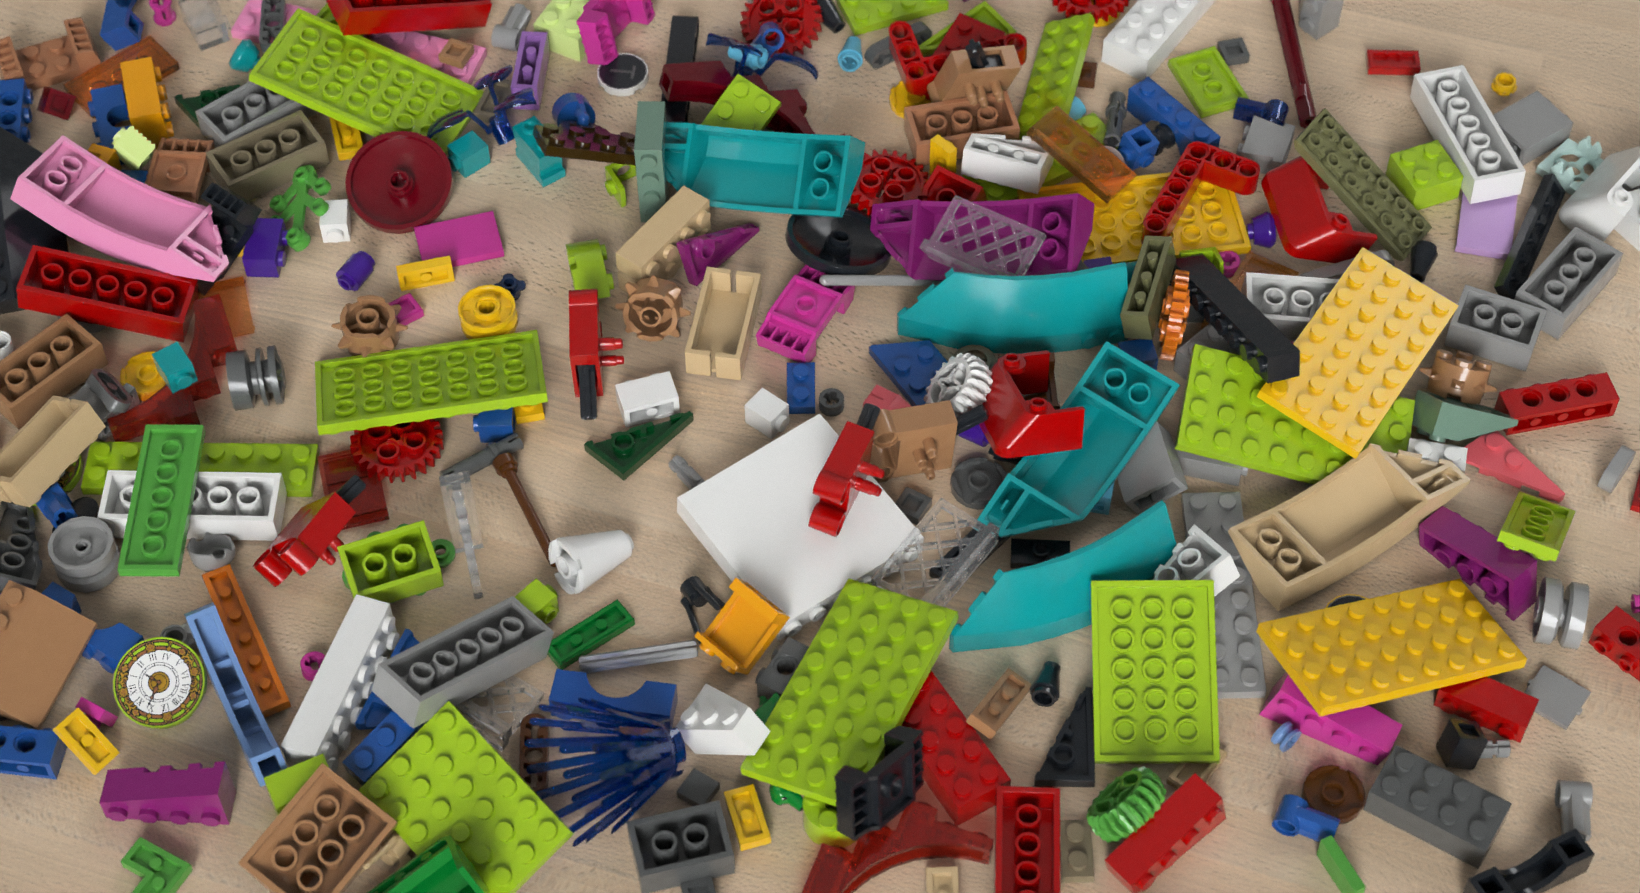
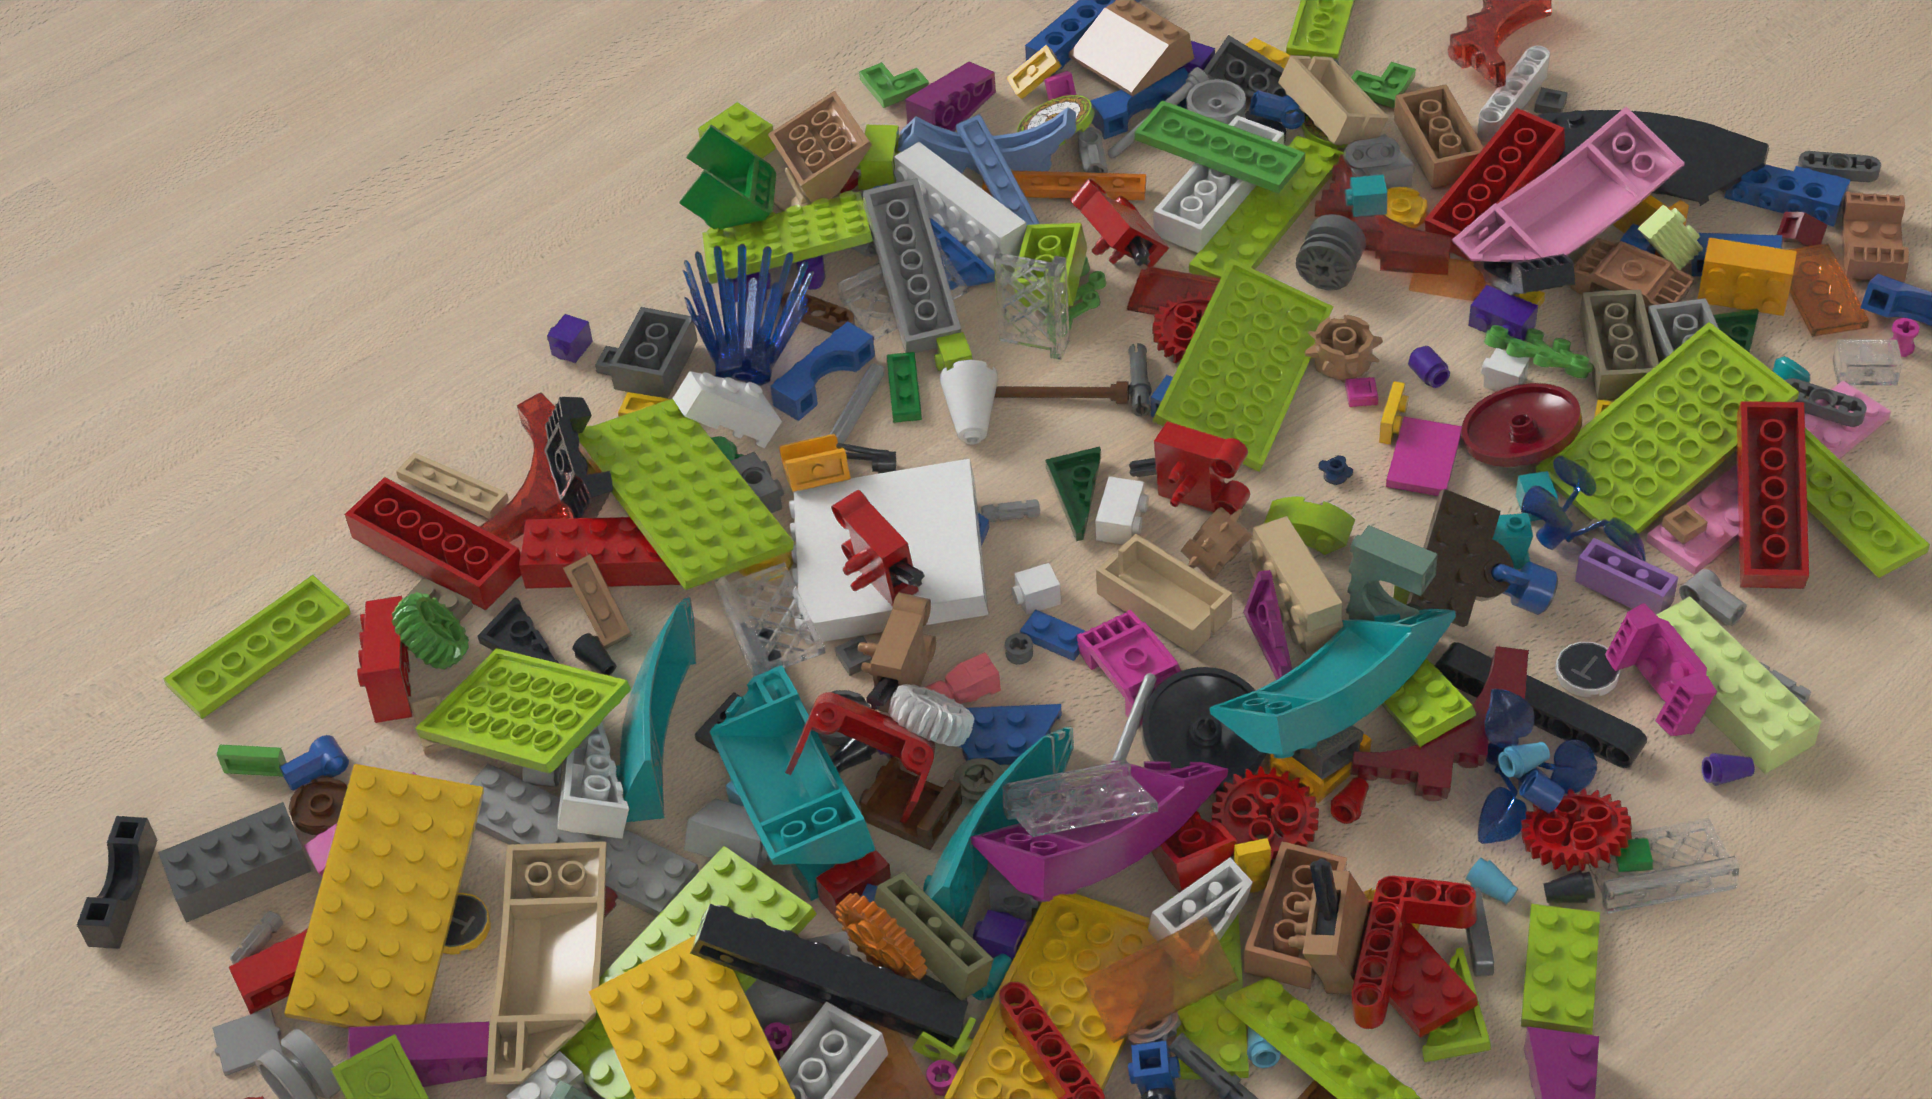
camera: 125 degrees right, 5 degrees down
(56, 577) = (1194, 77): none -> light grey piece
(211, 552) = (1162, 180): light grey hair -> none
(281, 673) = (994, 168): none -> medium blue tile
(487, 312) = (1307, 438): yellow wheel -> none
(1461, 744) = (267, 917): black panel -> none
(1575, 802) = (142, 973): light grey piece -> none

